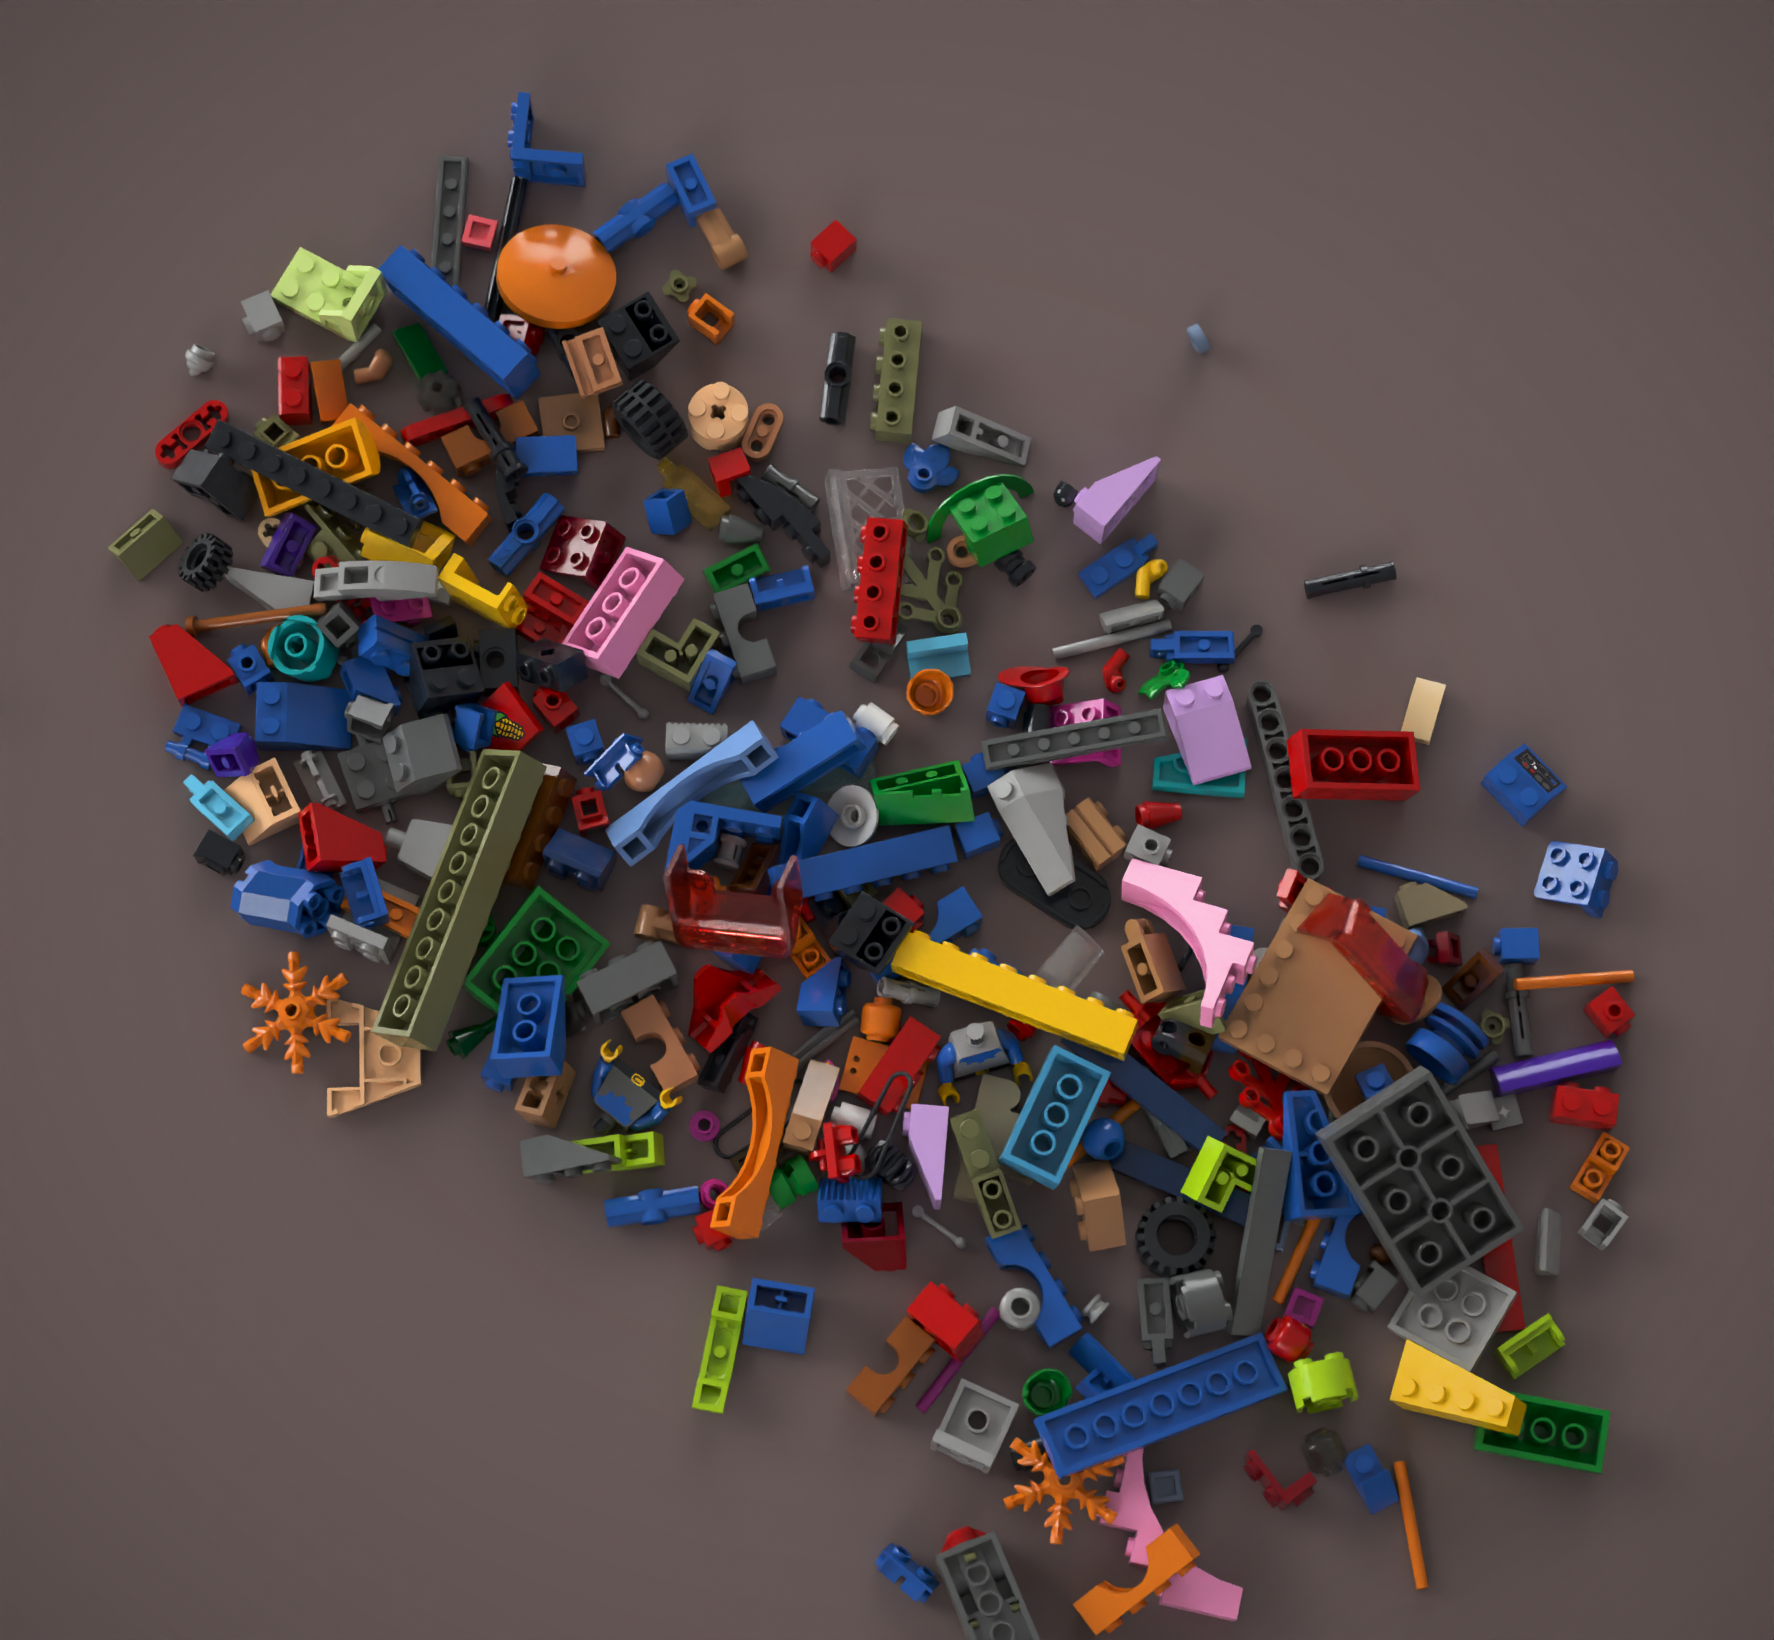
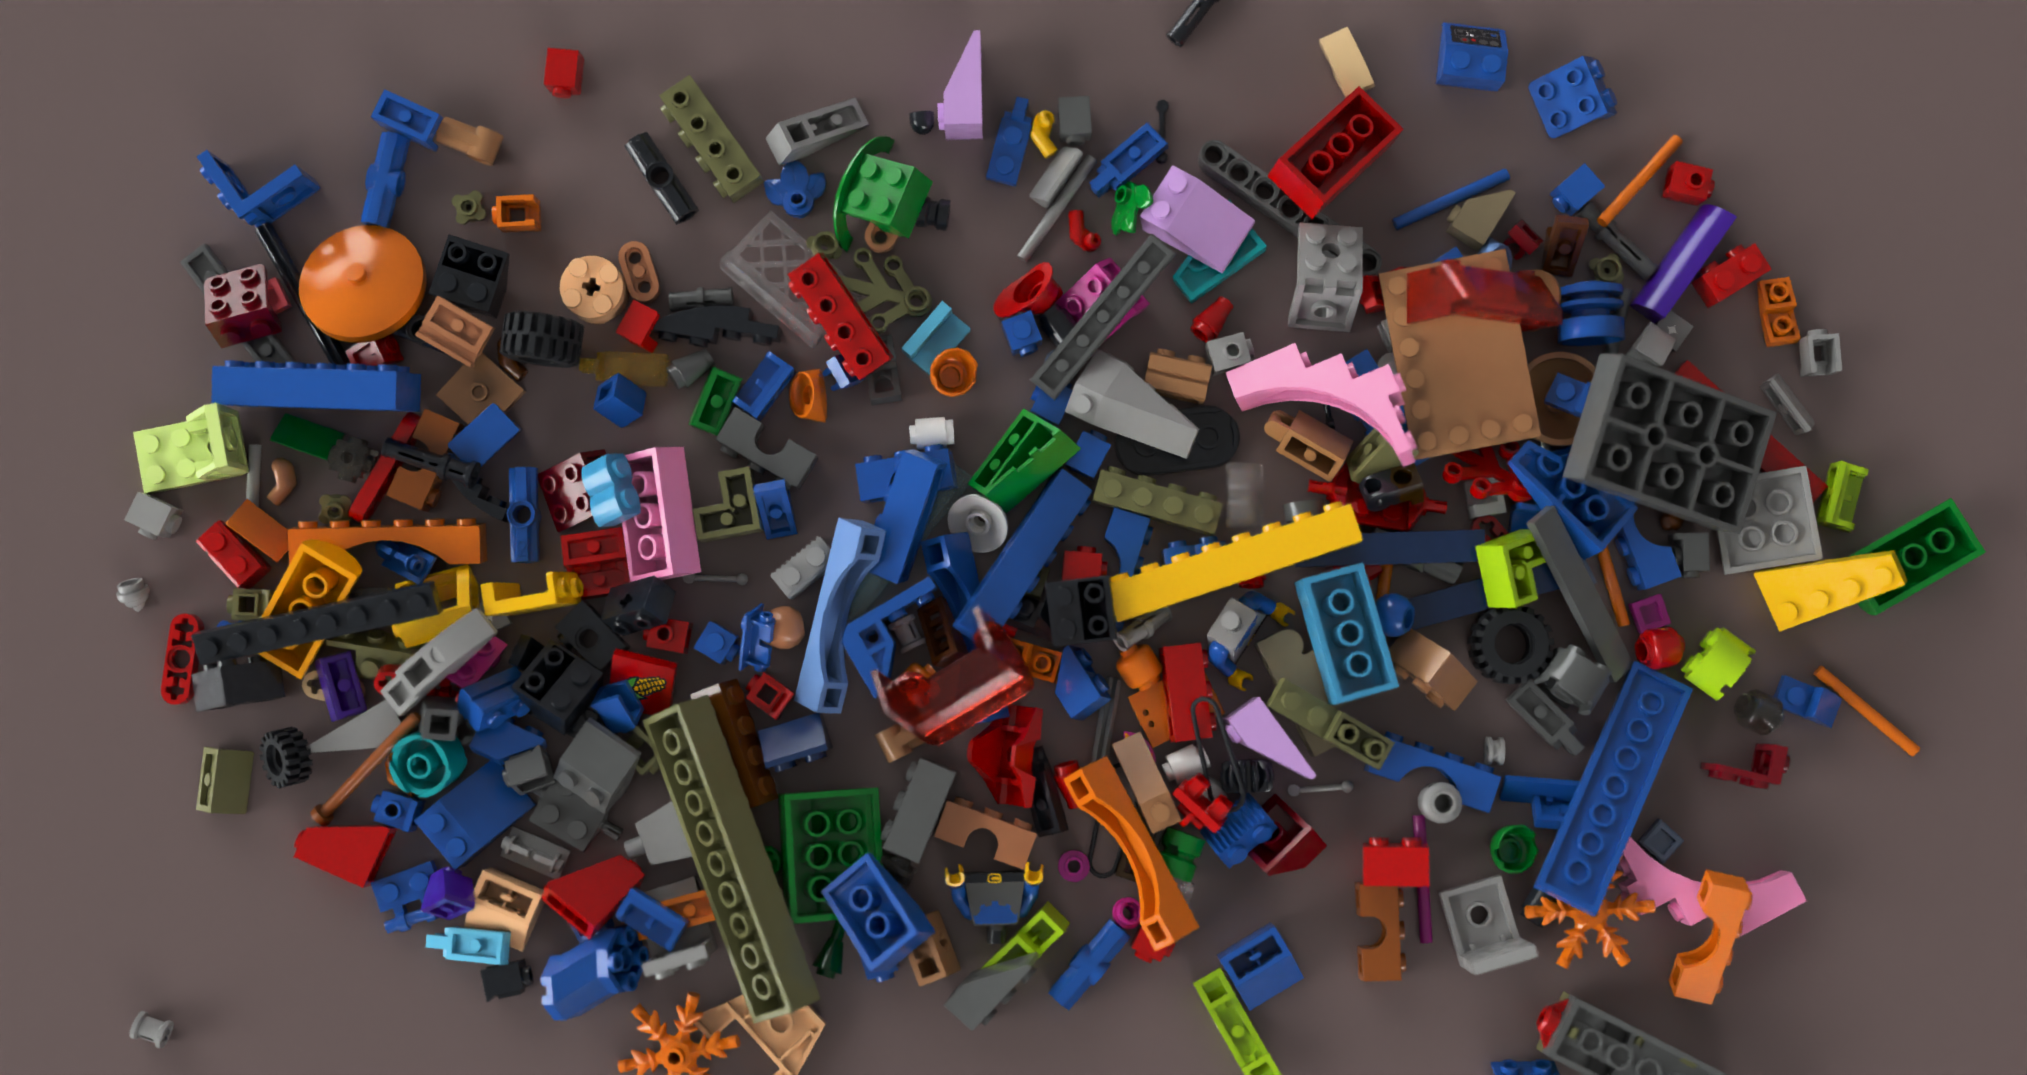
camera: 40 degrees left, 10 degrees up
(395, 409) = (328, 501): none -> olive plate
(454, 221) = (239, 306): none -> dark red bracket
(605, 565) = (611, 490): none -> dark azure brick
(808, 622) = (808, 395): none -> orange piece
(844, 625) = (840, 374): none -> blue tile
(1000, 914) = (1157, 502): none -> olive brick
(1265, 851) = (1327, 287): none -> light grey bracket

